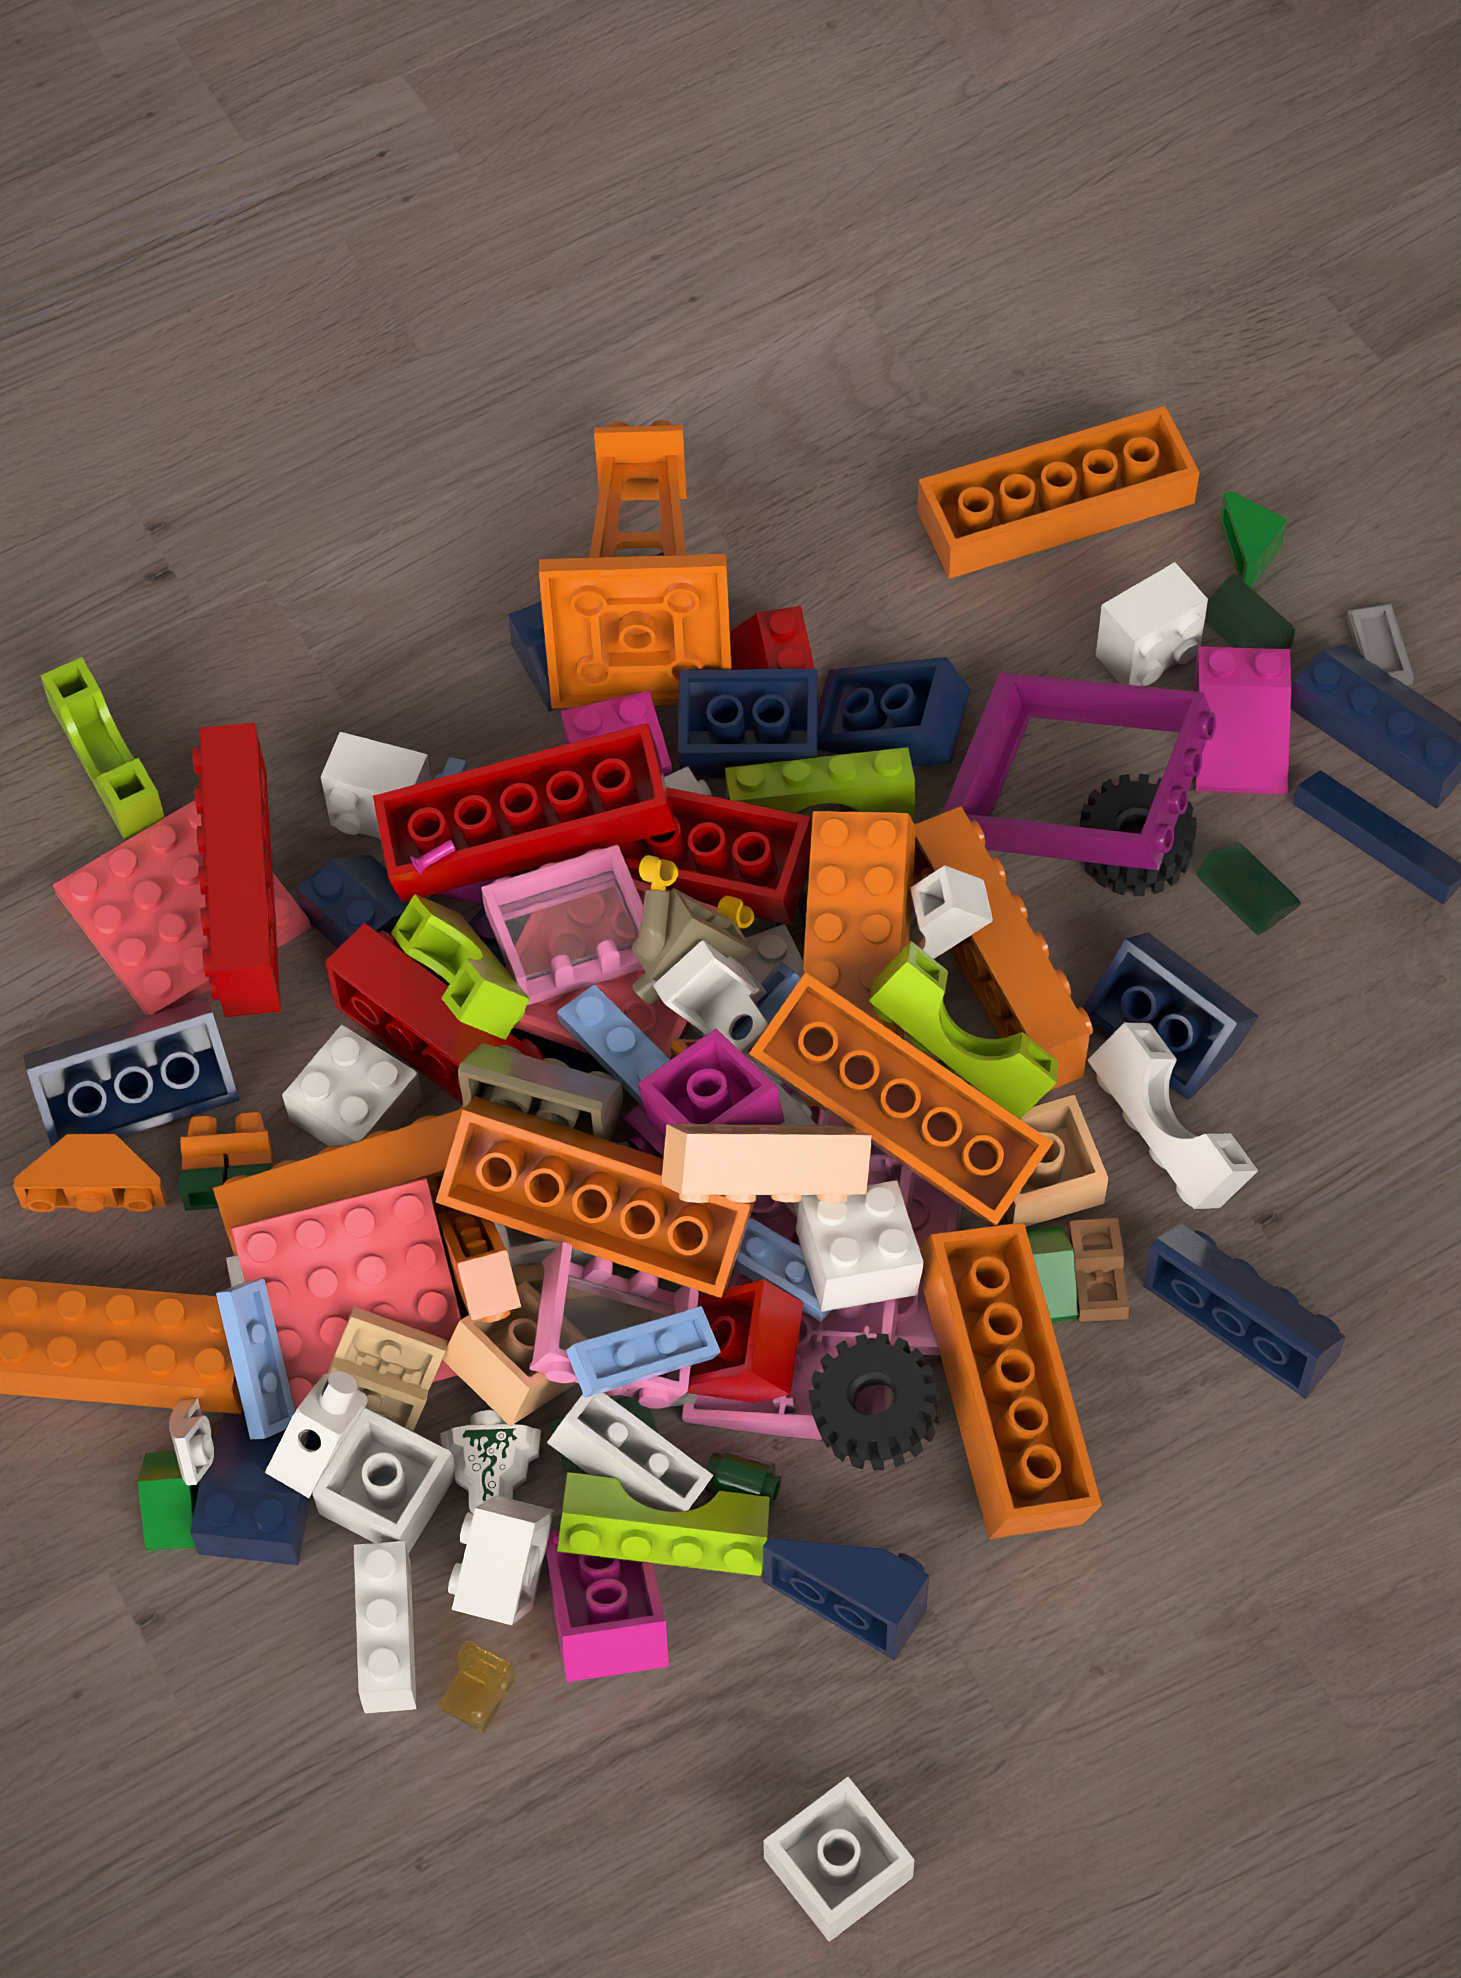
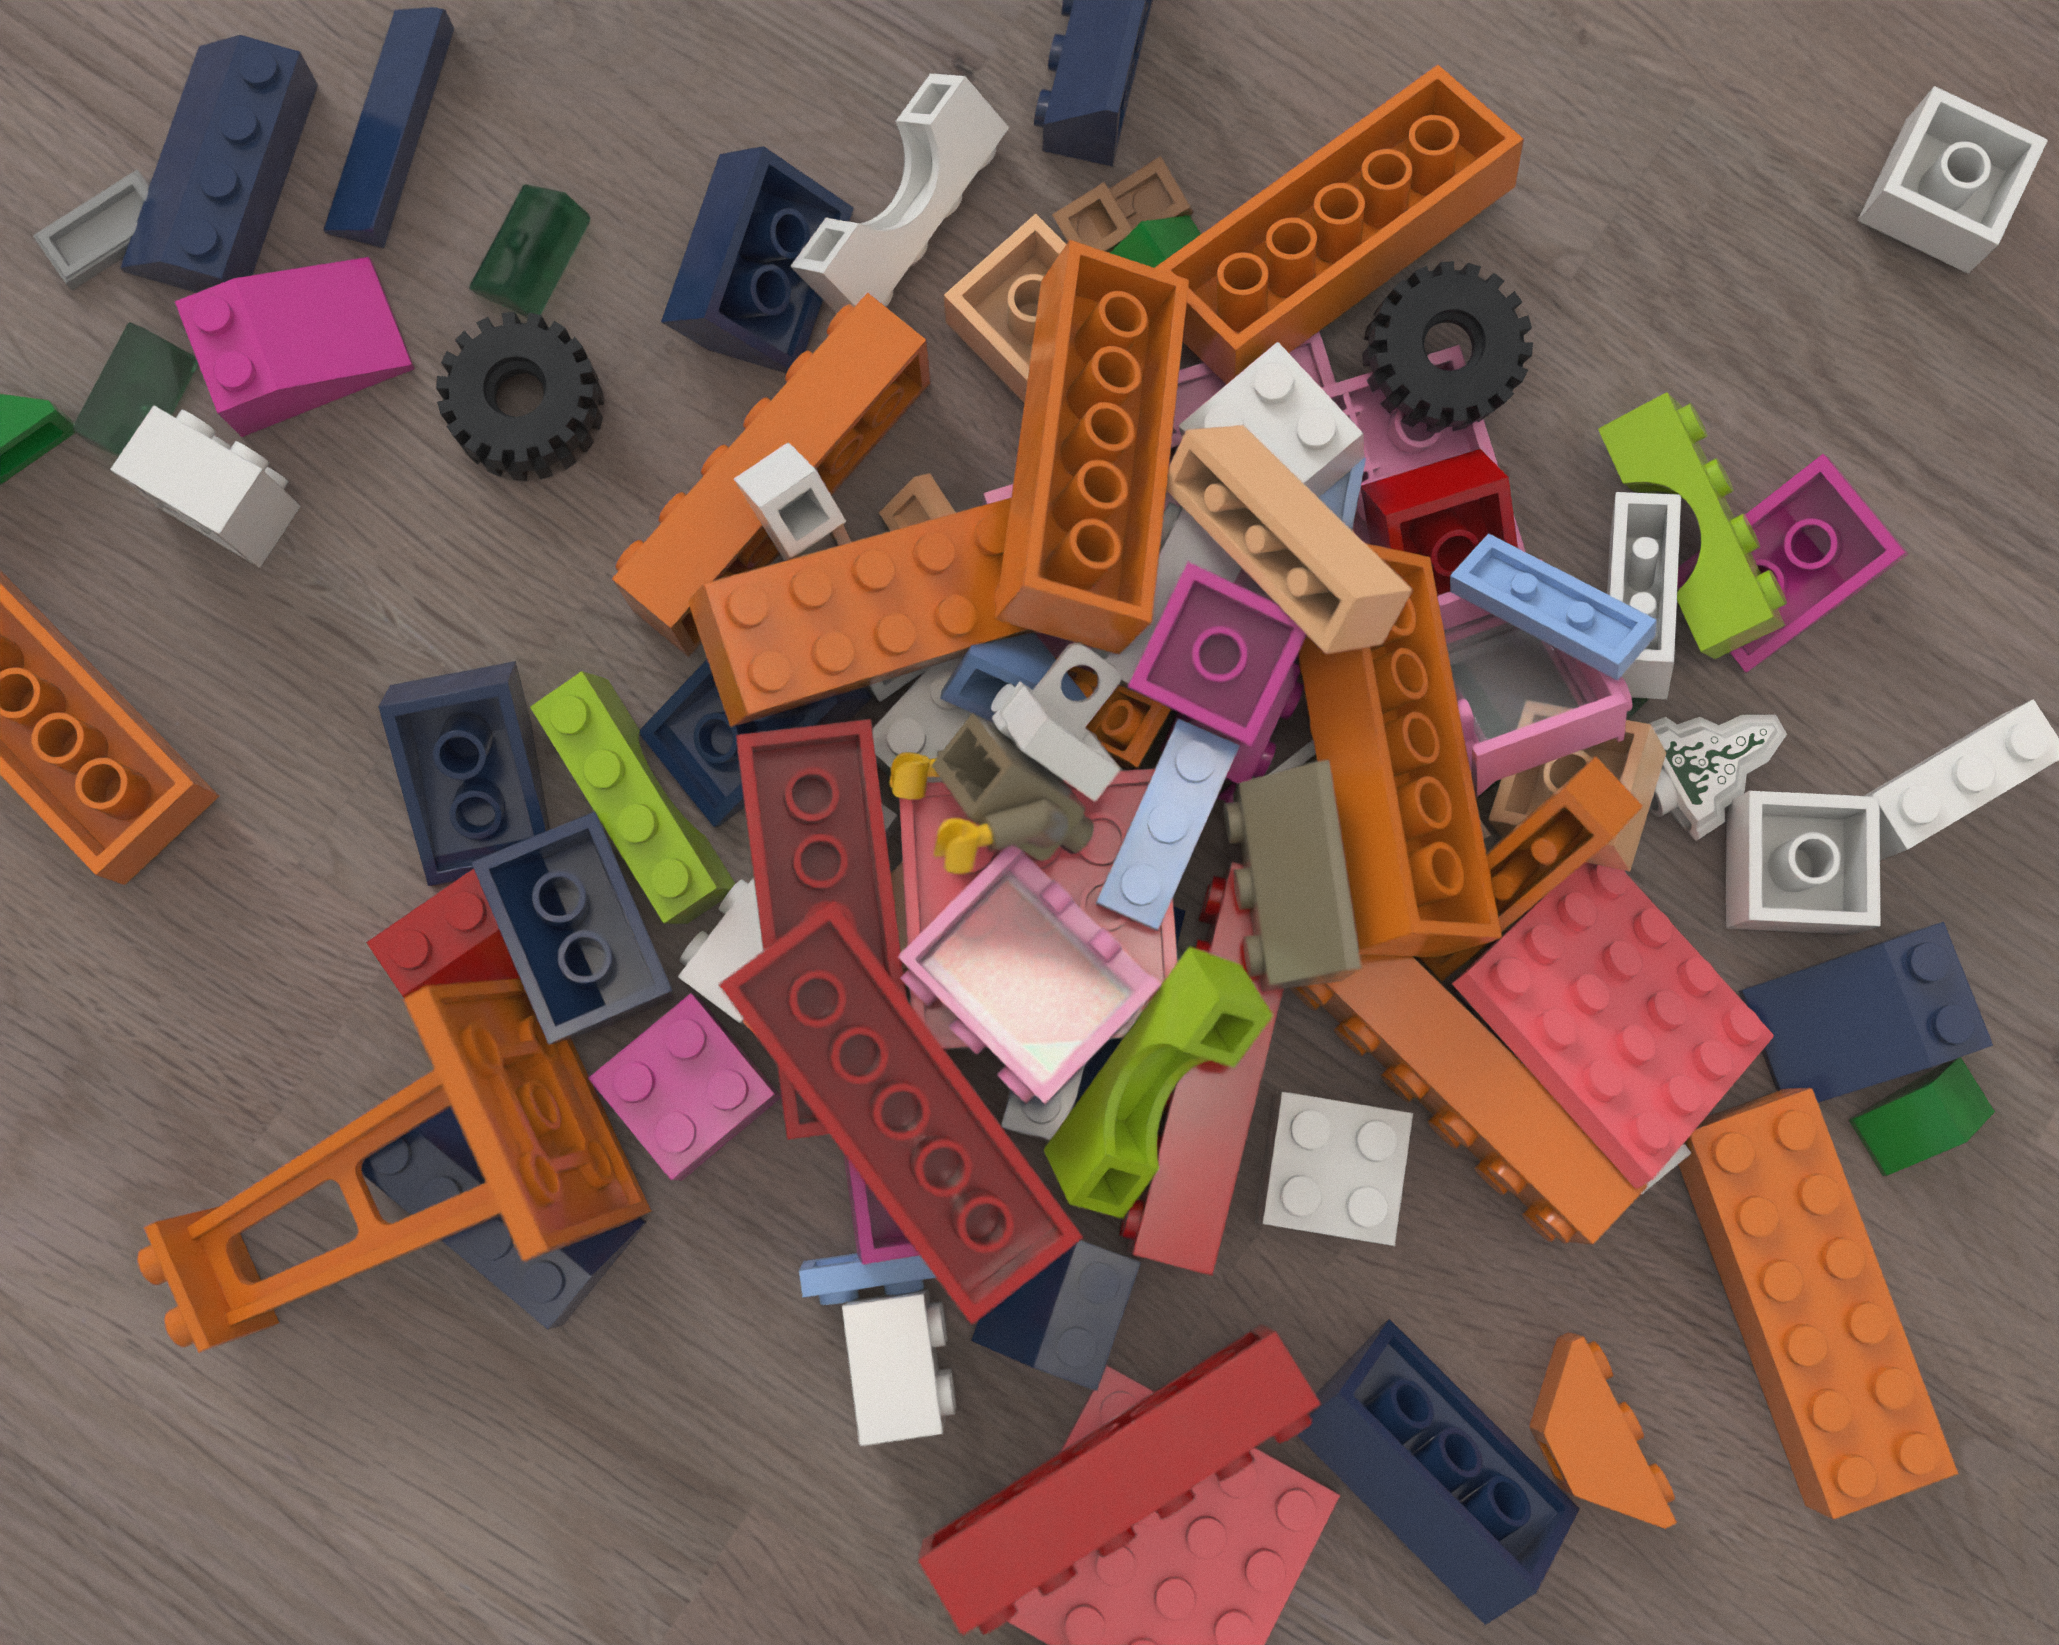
camera: 120 degrees left, 20 degrees up
(191, 1440) = (1901, 1101): white slope -> none
(214, 1157) = (1506, 1303): orange hips -> none
(256, 1358) = (1761, 1077): light blue plate -> none
(330, 1412) = (1806, 956): white torso -> none
(389, 1364) = (1682, 932): tan slope -> none
(432, 856) = (1035, 1185): dark pink piece -> none
(478, 1687) = (1957, 649): clear yellow panel -> none
(501, 1559) = (1842, 670): white brick -> none
(742, 1475) = (1578, 479): dark green brick -> none
(853, 1587) = (1660, 283): dark blue slope -> none
(1000, 732) = (466, 618): magenta window -> none
(1006, 1070) = (959, 470): lime arch -> none

